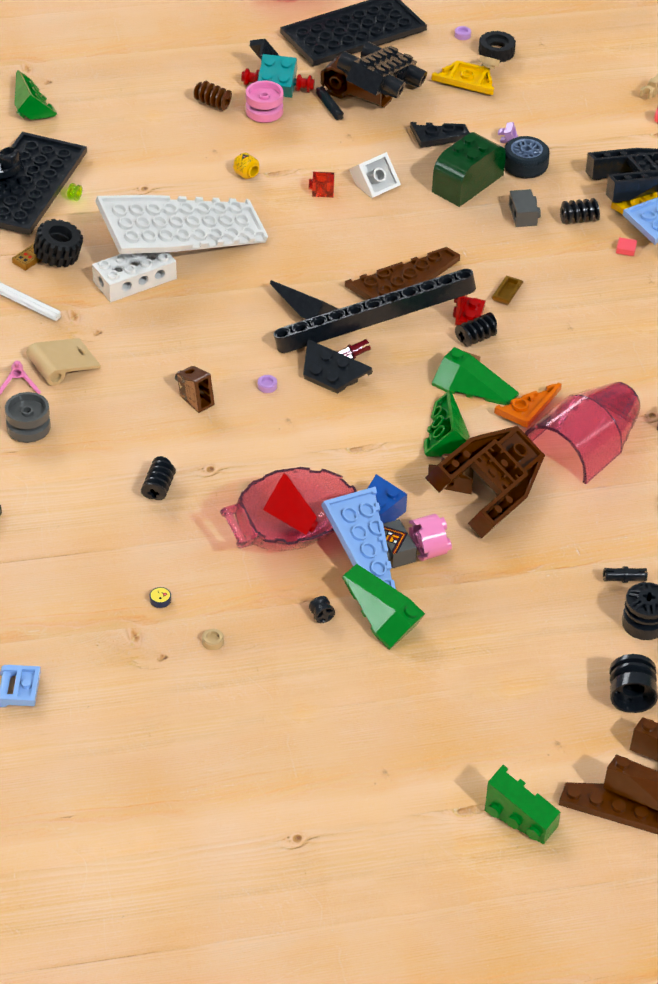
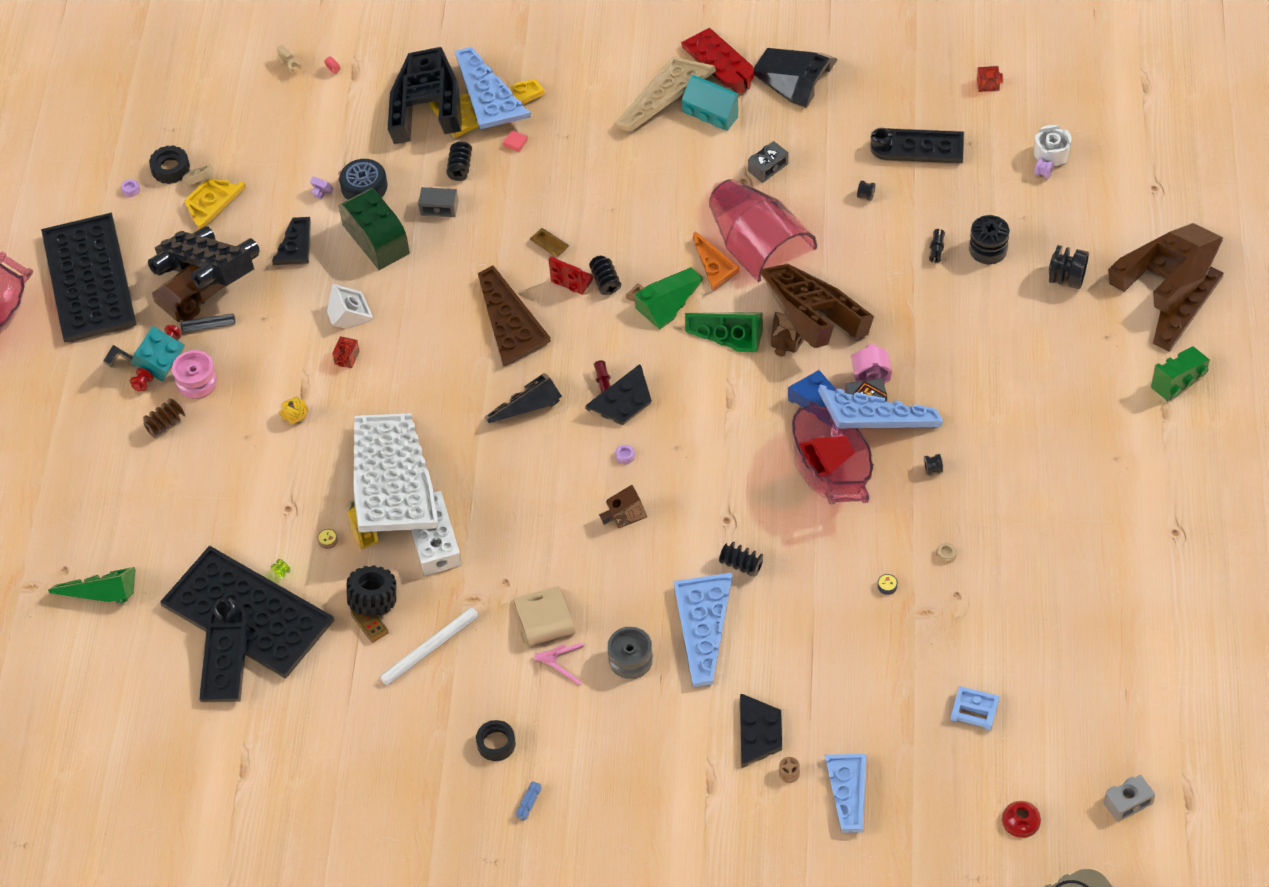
camera: 70 degrees left, 10 degrees up
(92, 463) = (702, 616): none -> light blue wing
(375, 310) = (573, 349): black beam -> none
(386, 609) = (950, 414): green wedge -> none

